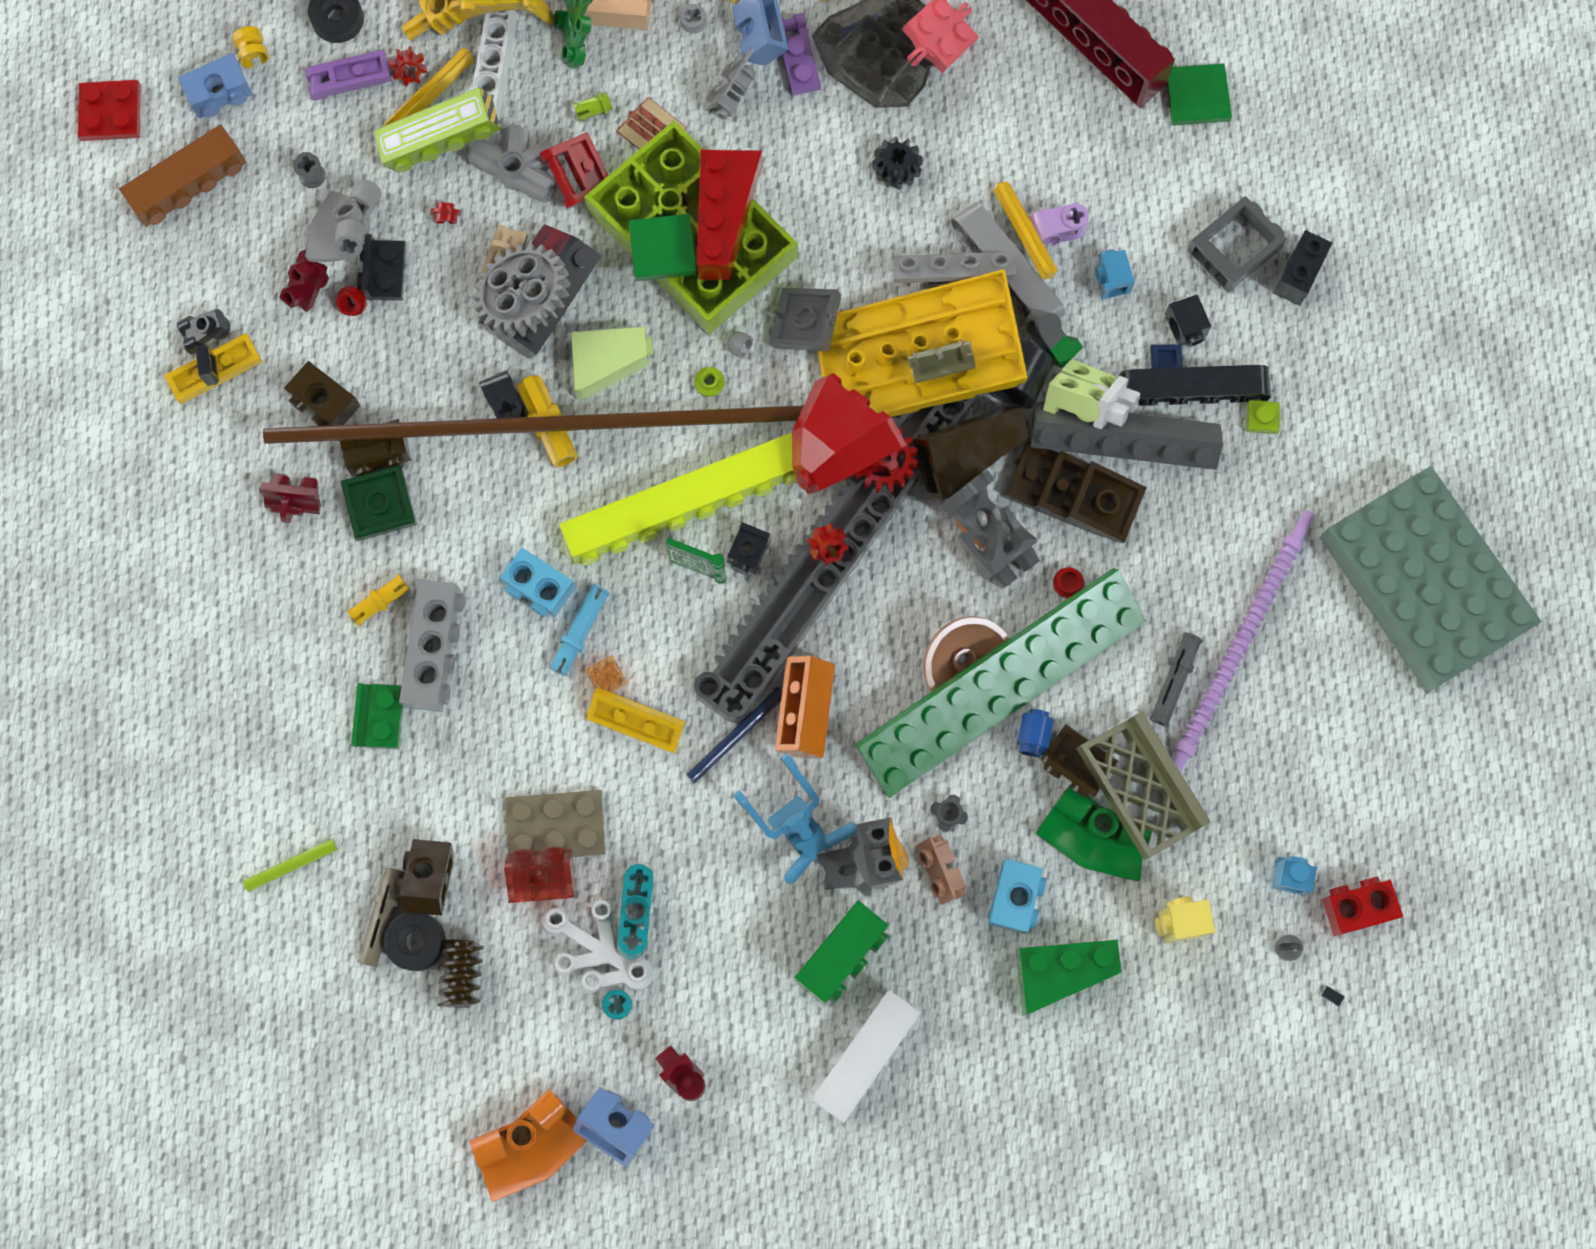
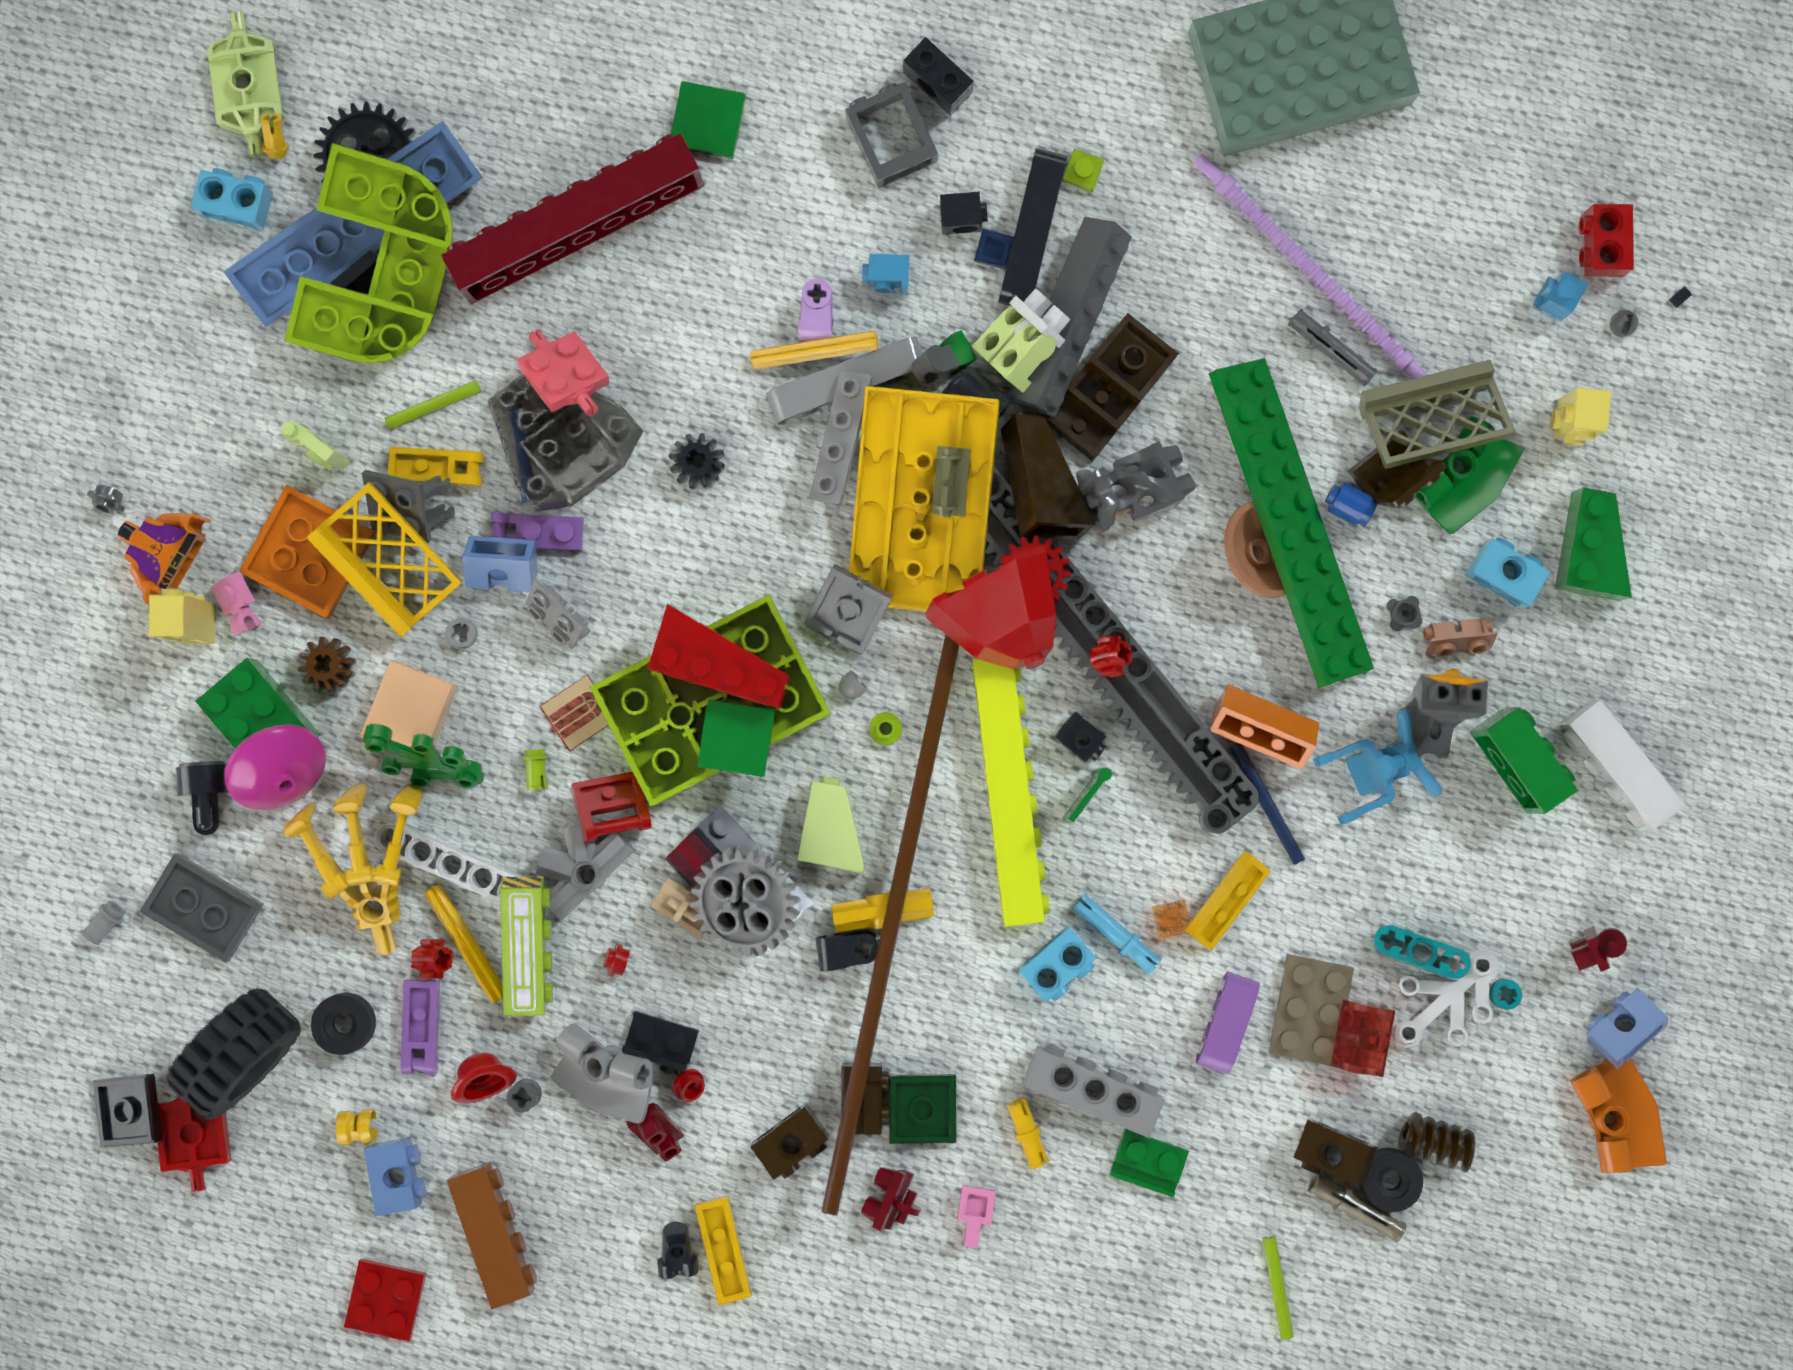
camera: 75 degrees left, 10 degrees up
(206, 365) = (726, 1256): black tile -> none
(299, 572) = (976, 1209): none -> bright pink plate
(314, 130) = (481, 1078): none -> red hat
(523, 748) = (1229, 1023): none -> medium lavender beam
(1068, 582) = (1203, 423): red plate -> none

